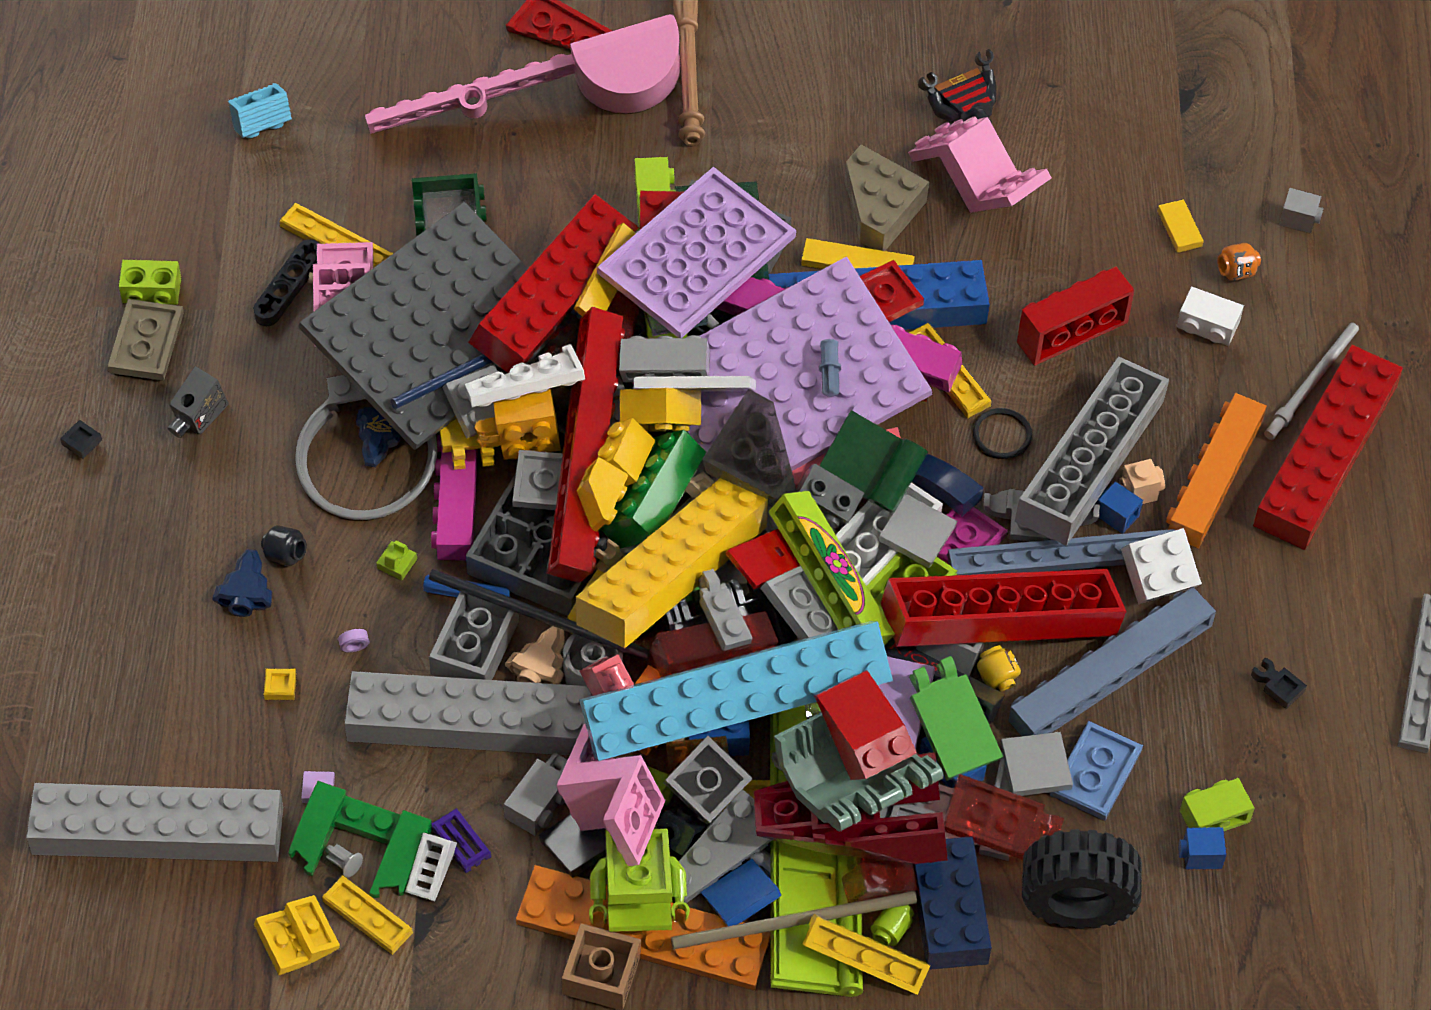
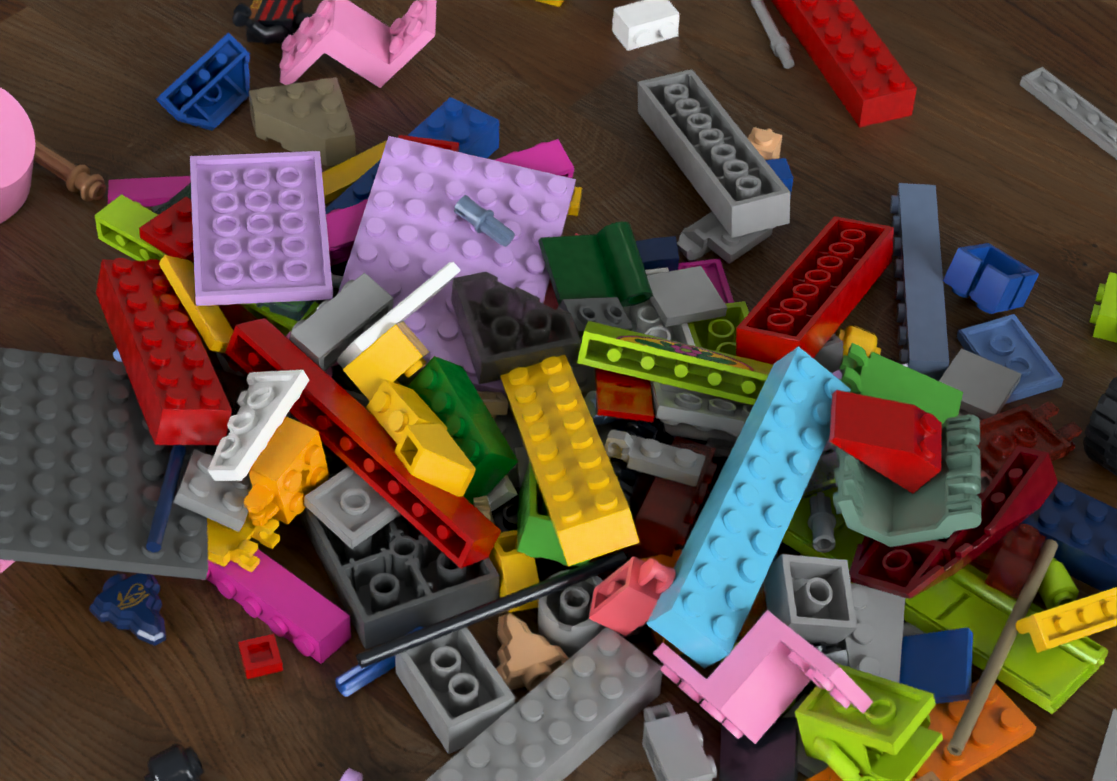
camera: 50 degrees left, 10 degrees down
(342, 392) = (66, 589): light grey brick -> none
(397, 560) = (289, 693): lime tile -> none
(407, 524) = (260, 656): none -> red plate
(714, 155) = (147, 190): none -> dark pink tile
(847, 120) = (210, 86): none -> blue wedge
(1002, 411) = (639, 191): black tyre -> none
(1045, 555) = (782, 241): sand blue plate -> none
(1075, 315) = (564, 83): red brick -> none
(1148, 705) = (990, 278): none -> blue piece
(1161, 566) = (860, 186): white brick -> none
(1217, 468) = (794, 109): orange brick -> none
(1280, 685) = (1030, 199): black plate -> none

